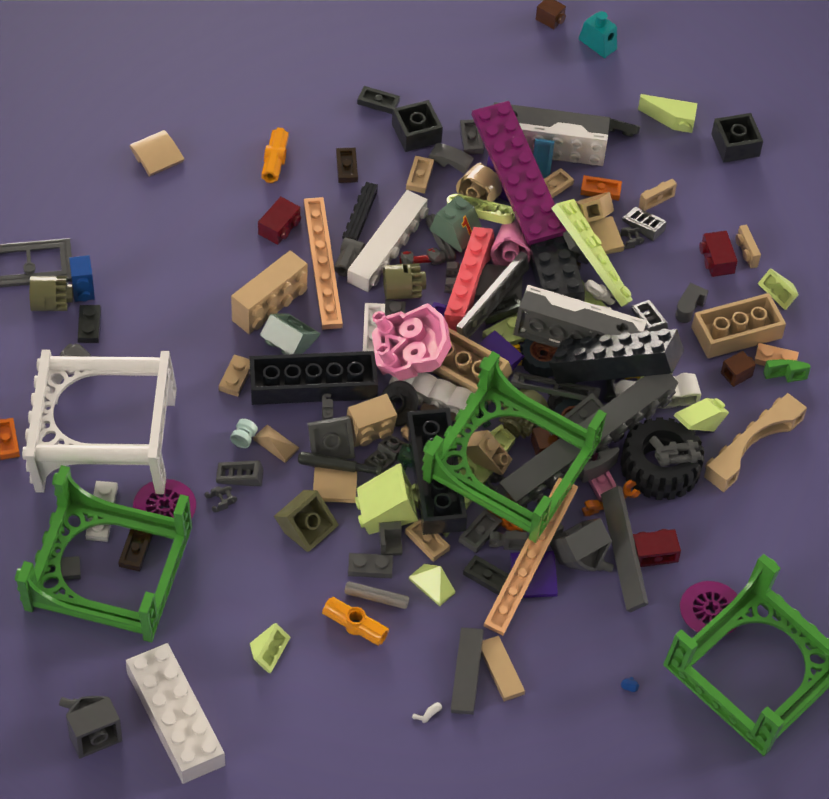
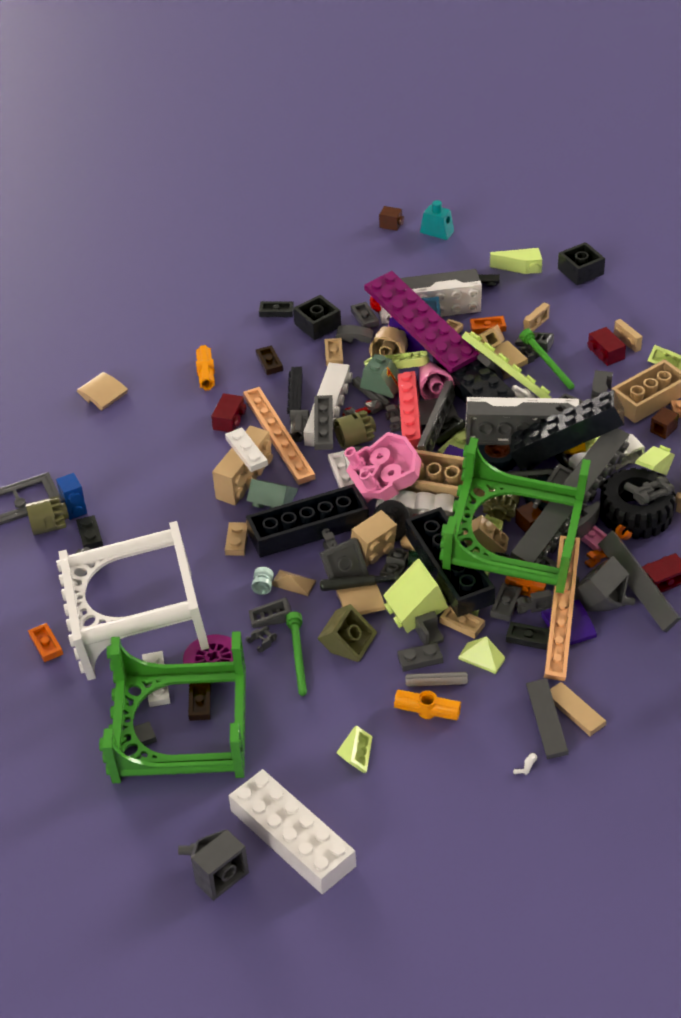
camera: 10 degrees left, 10 degrees down
(259, 489) = (294, 622): none -> bright green piece
(275, 280) = (246, 449): none -> white plate
(371, 266) = (323, 422): none -> dark grey plate
(636, 218) = (527, 337): none -> bright green piece

